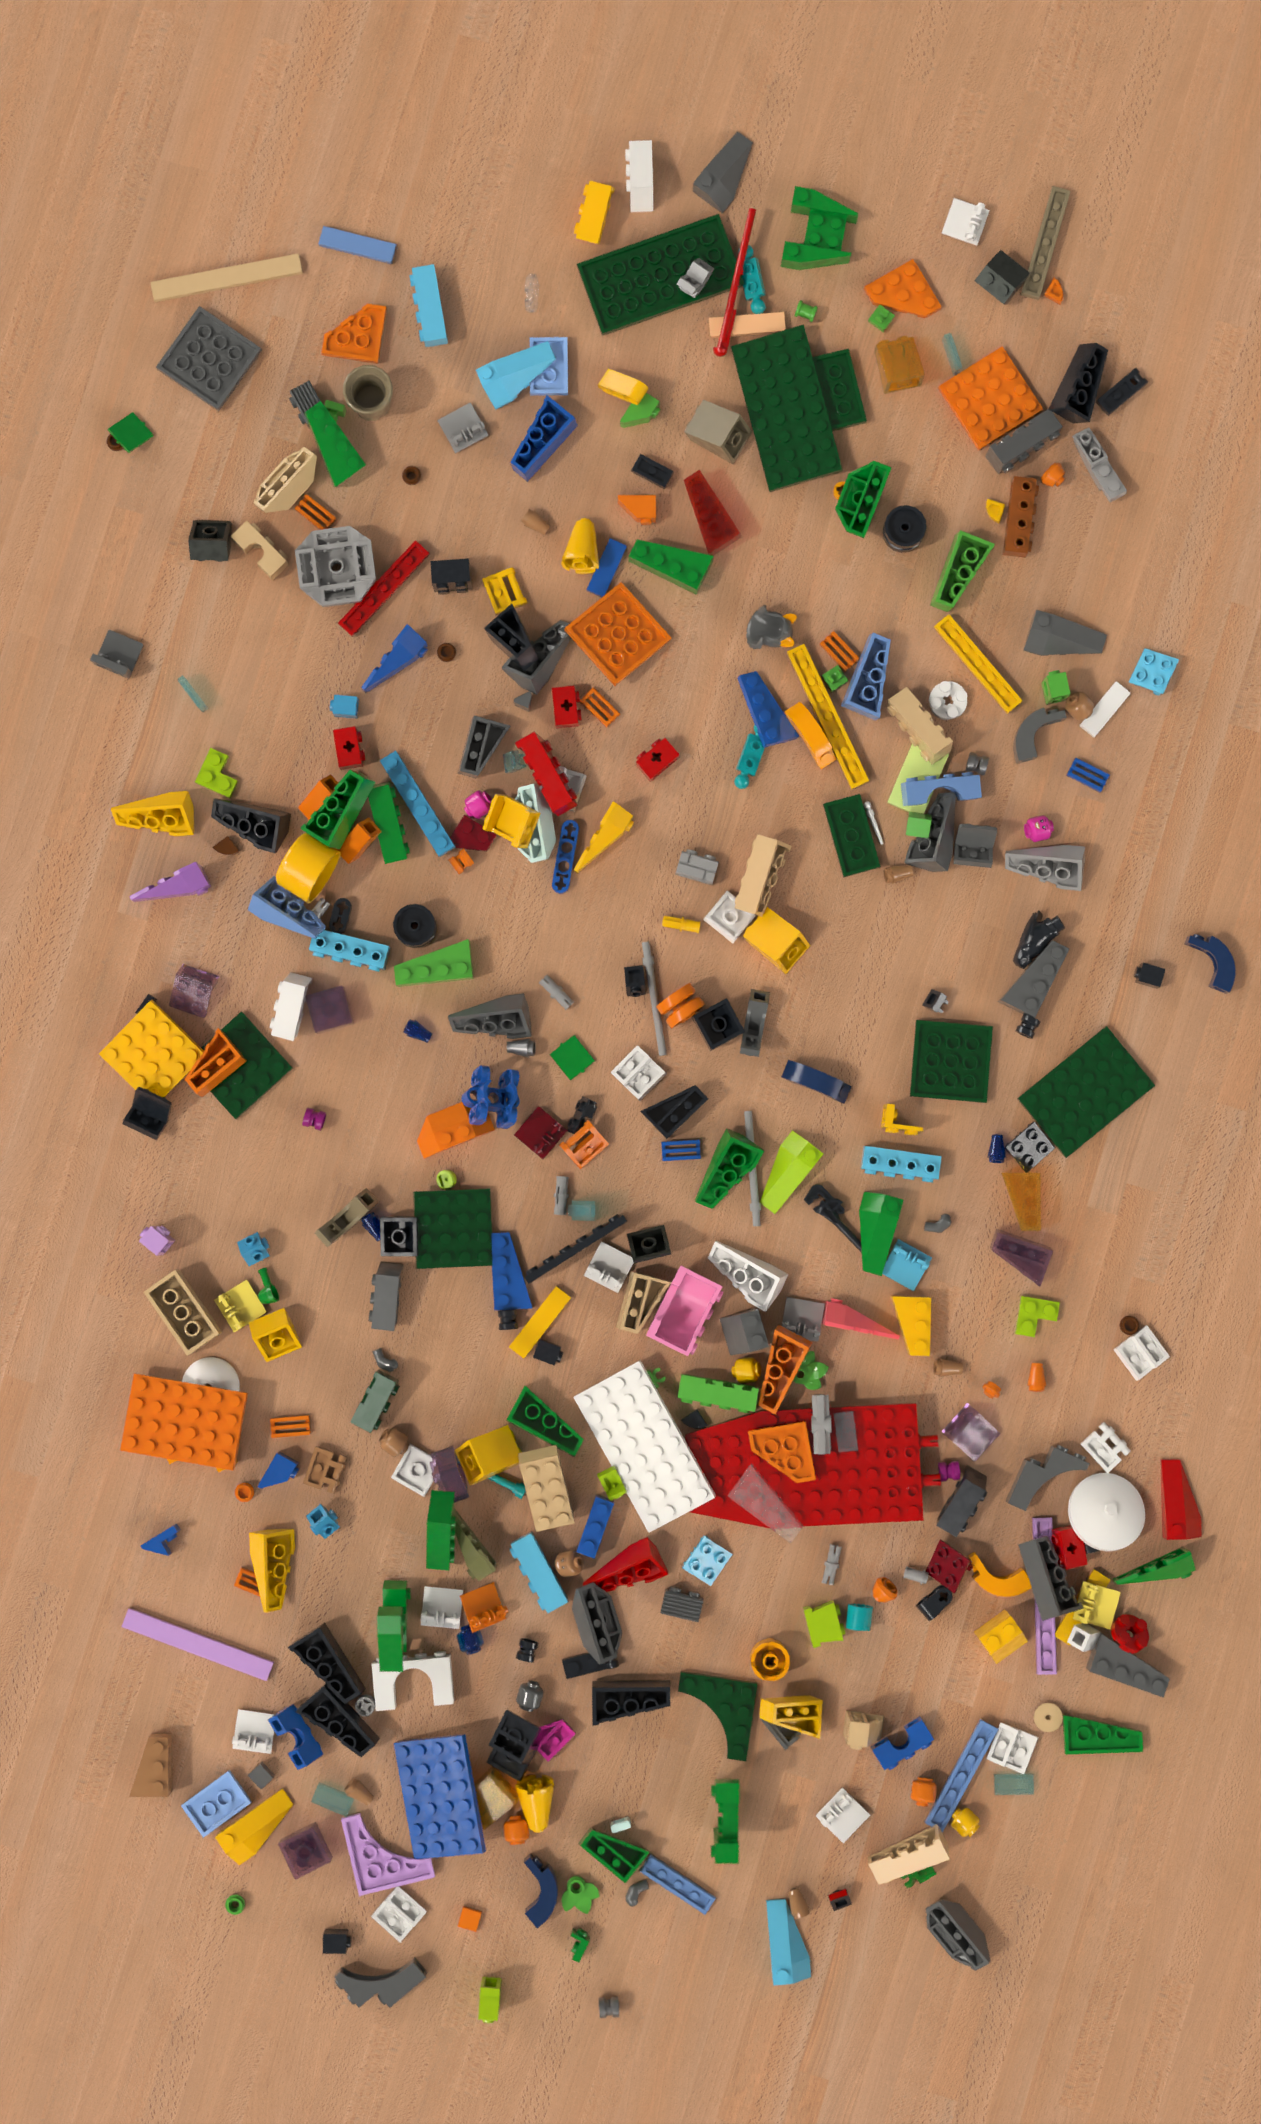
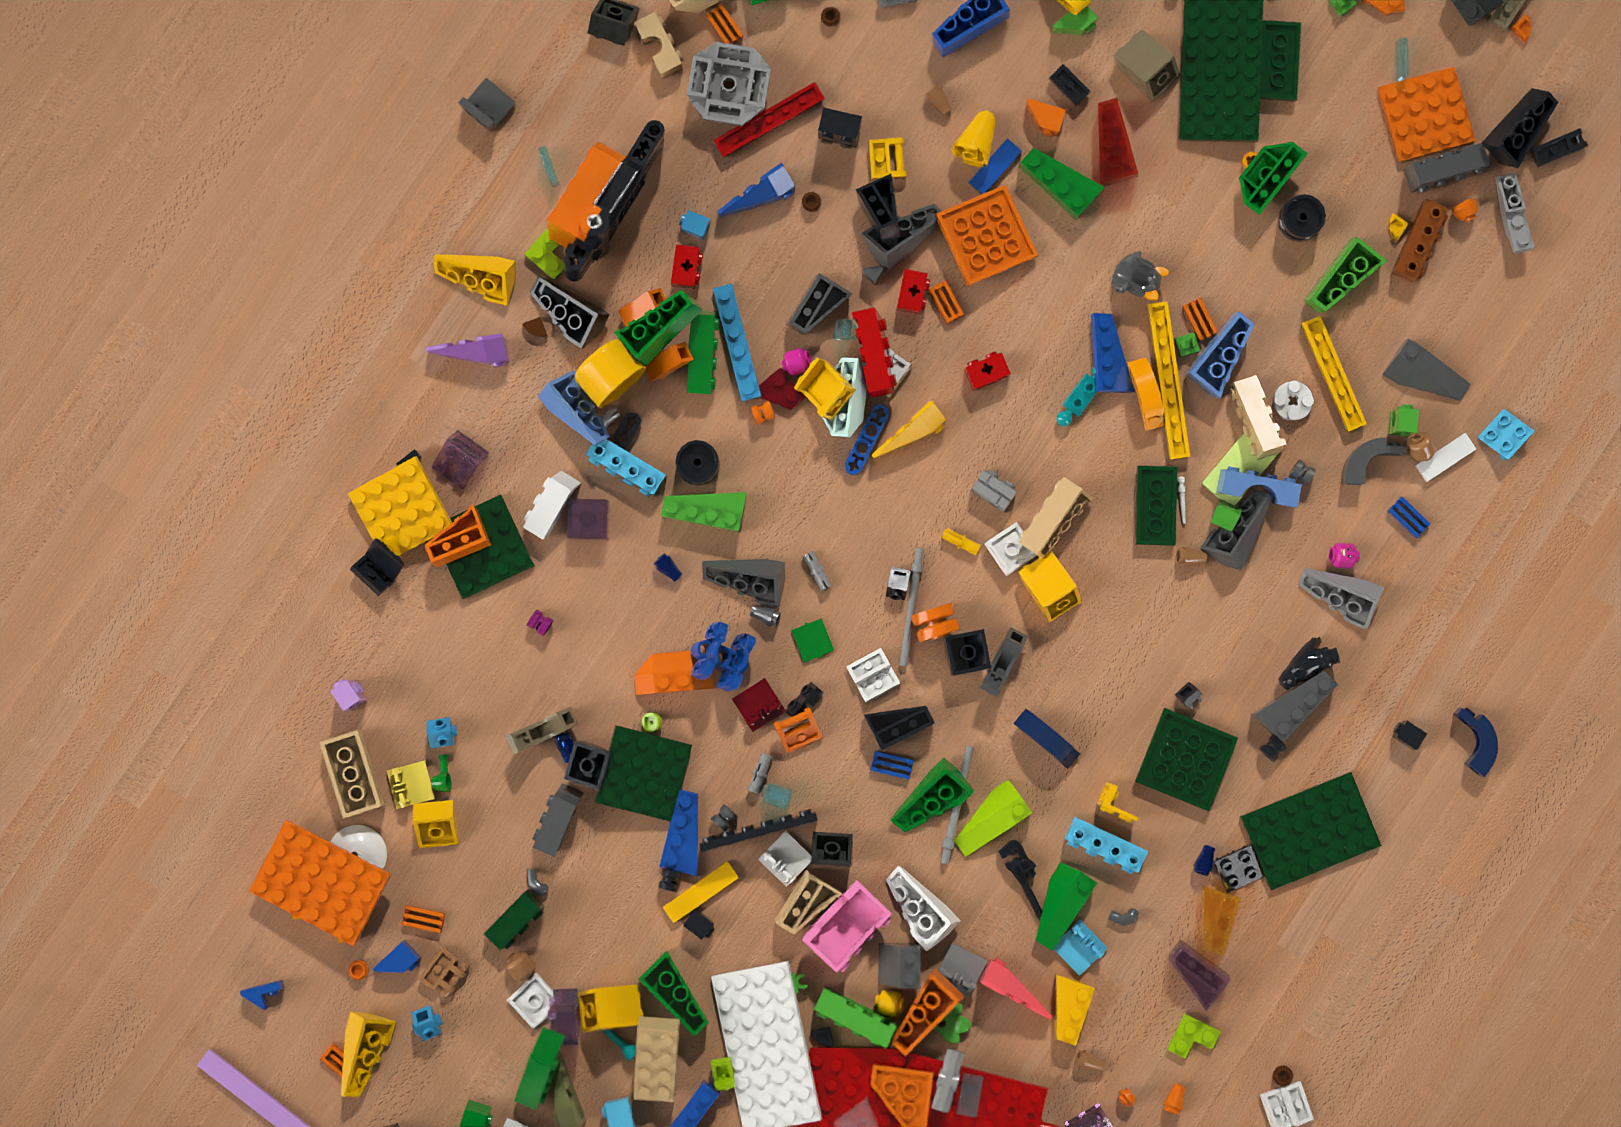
camera: 15 degrees right, 0 degrees up
(250, 708) = (600, 199): none -> piece
(542, 1242) = (728, 814): none -> flat silver wheel
(899, 364) = (1346, 53): clear yellow slope -> none
(974, 845) = (1275, 553): dark grey bracket -> none

